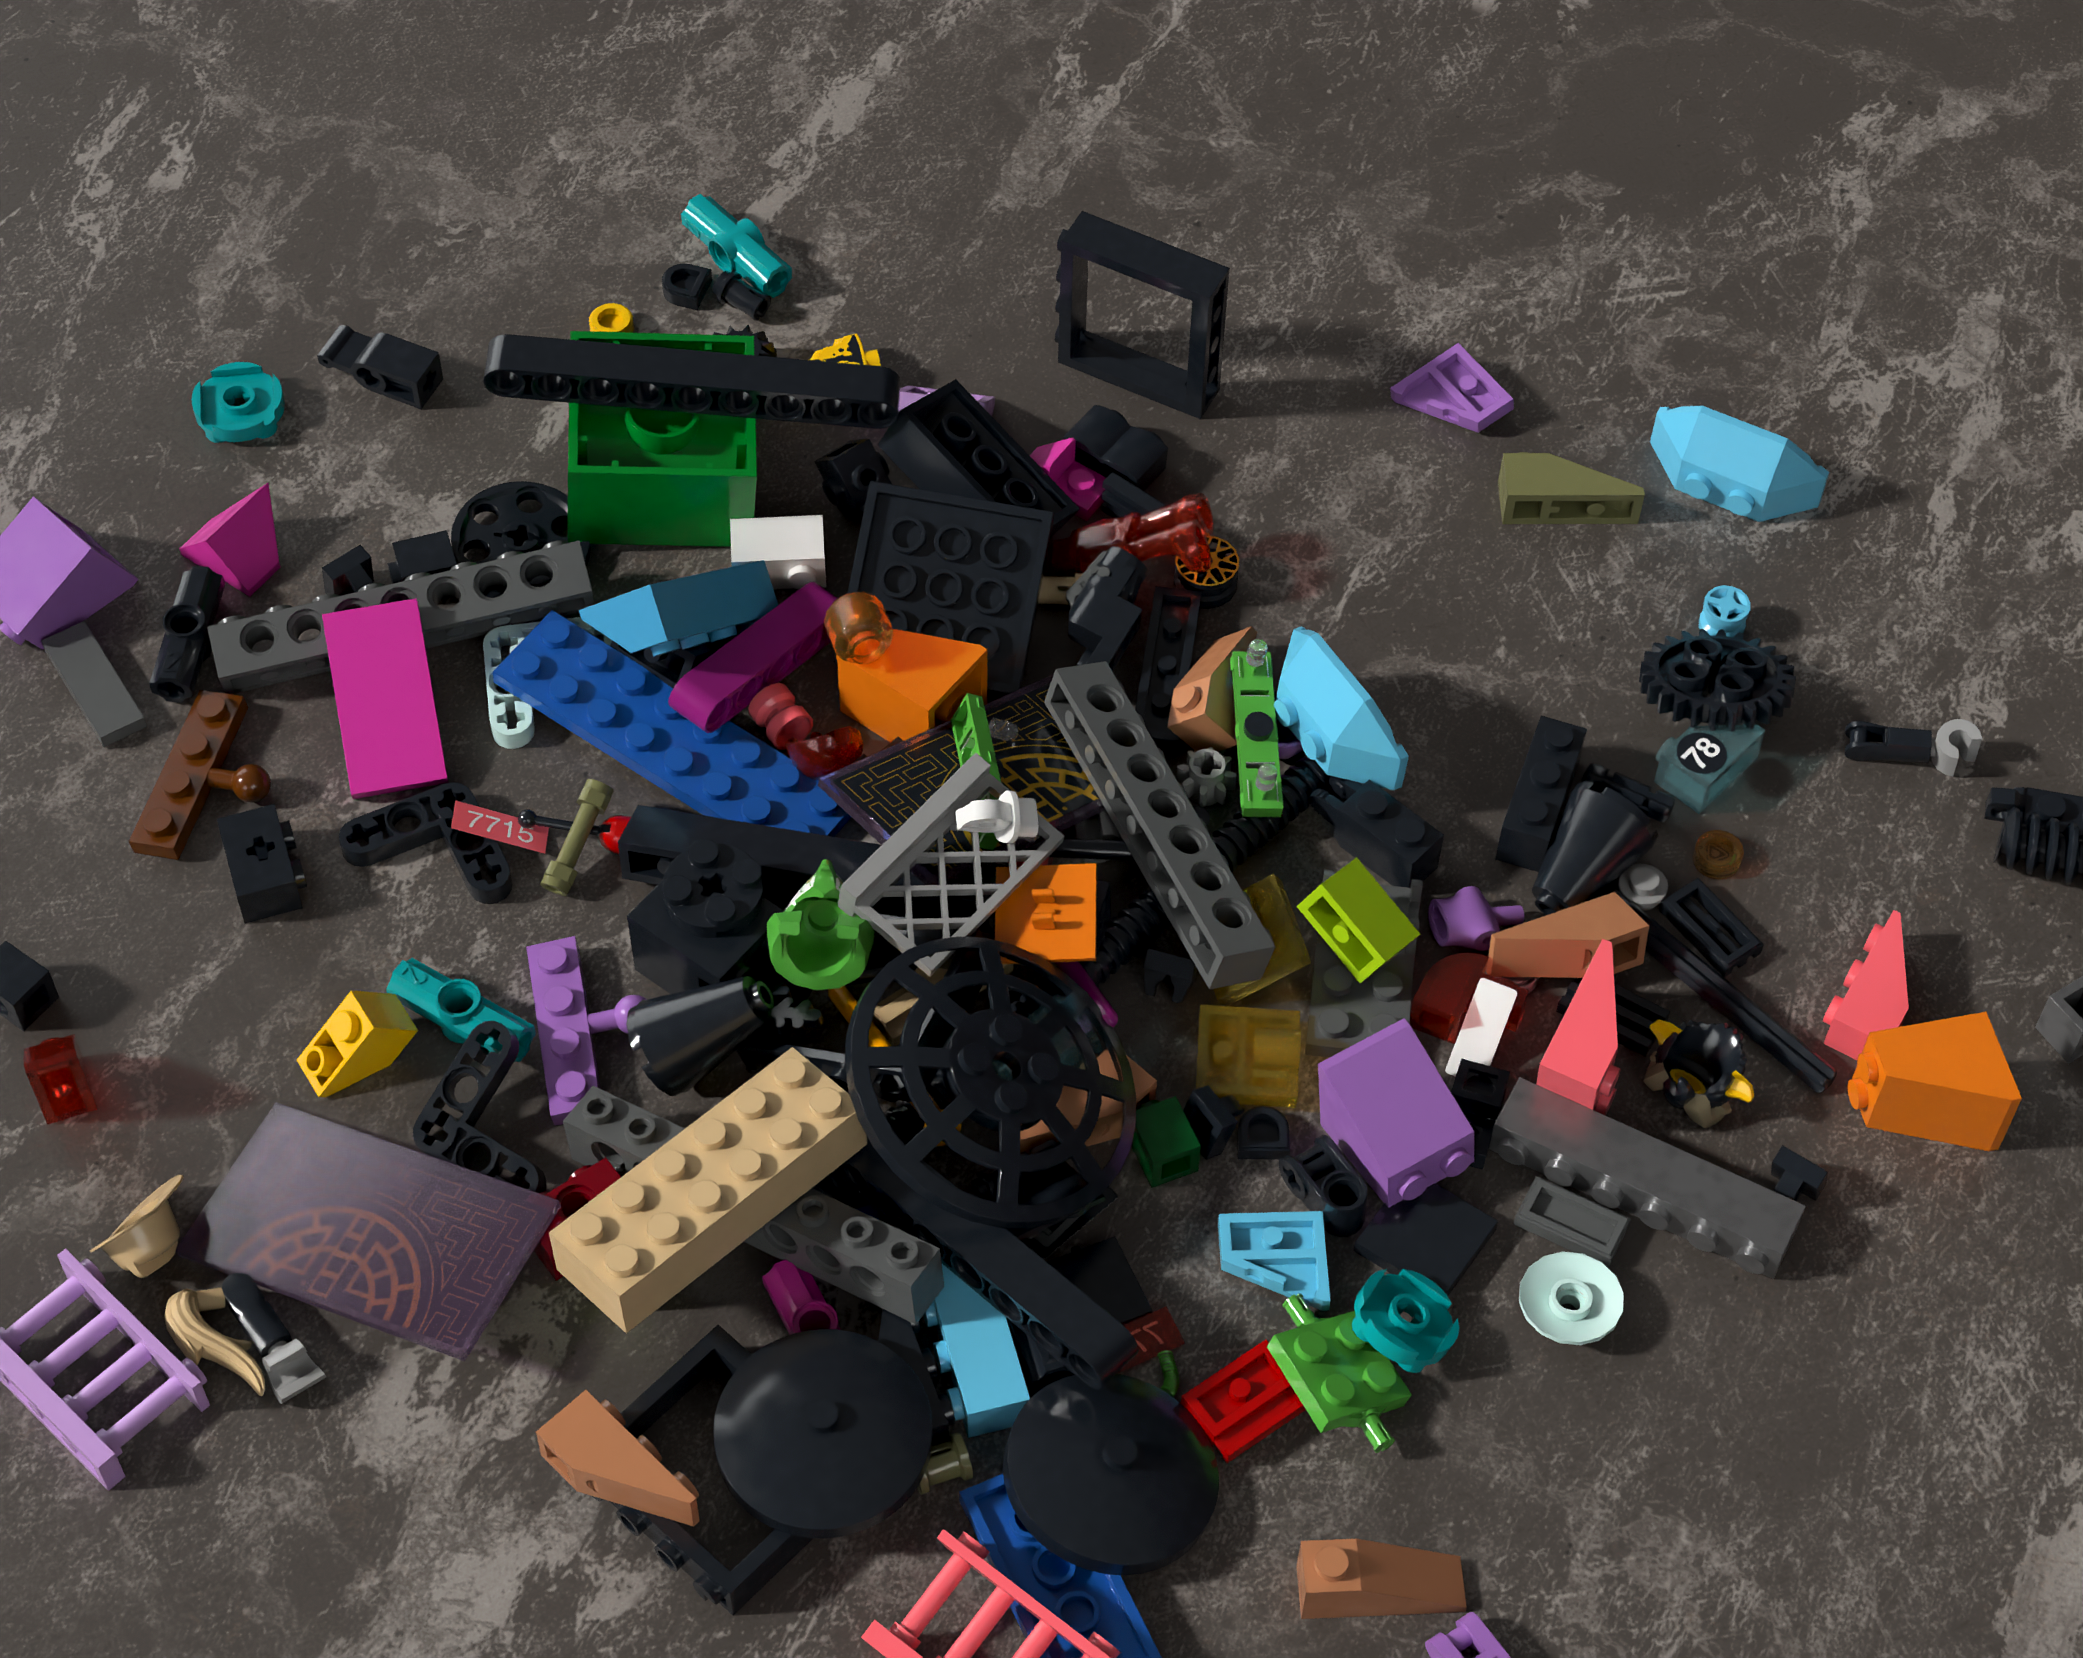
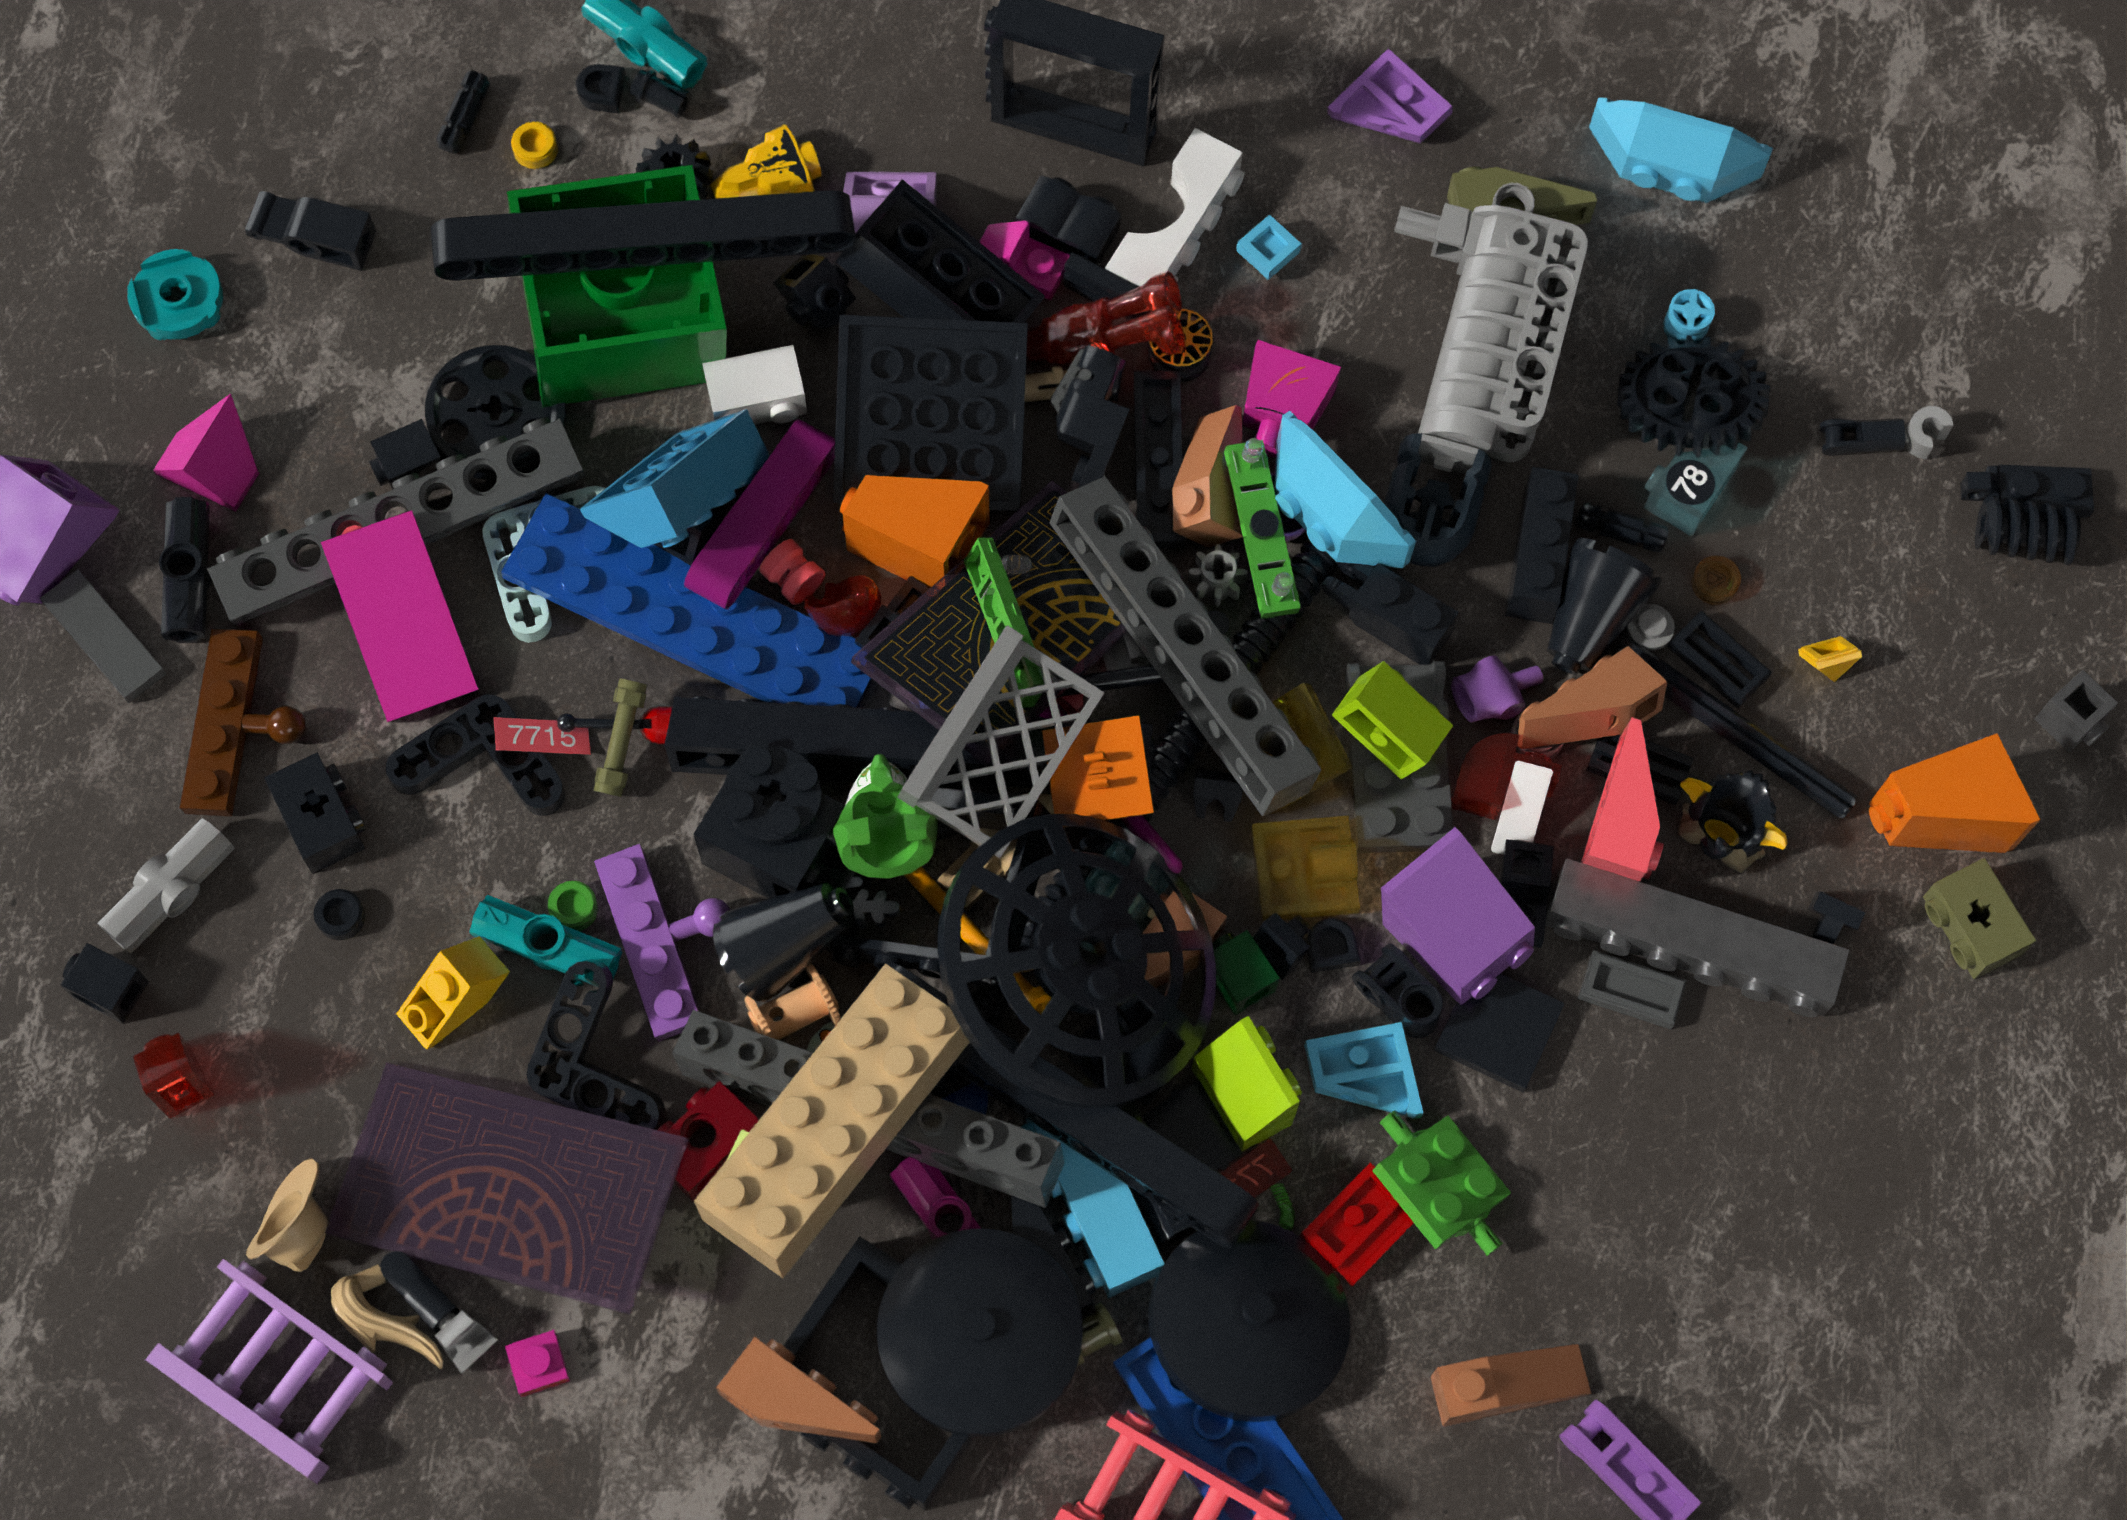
camera: 10 degrees left, 15 degrees up
(97, 908) = (166, 885): none -> light grey piece
(262, 961) = (339, 914): none -> black tile
(348, 572) = (334, 481): black tile -> none
(361, 1407) = (537, 1363): none -> dark pink plate
(499, 983) = (573, 905): none -> bright green tile
(549, 287) = (463, 112): none -> black axle
(691, 1104) = (796, 1007): none -> light nougat hose
(858, 627) = (861, 489): clear orange head -> none
(1005, 817) = (1049, 687): white piece -> none
(1150, 1241) = (1247, 1083): none -> lime slope
(1256, 430) = (1203, 177): none -> white arch
(1305, 604) = (1285, 383): none -> dark pink torso
(1310, 499) = (1268, 247): none -> medium azure plate
(1410, 1343) = (1483, 1141): teal plate -> none
(1508, 617) = (1483, 358): none -> light grey piece
(1573, 1281) = (1658, 1057): light aqua dish -> none
(1827, 940) = (1831, 656): none -> yellow slope
(1875, 994) = (1886, 716): coral slope -> none
(1949, 1203) = (1972, 895): none -> olive brick

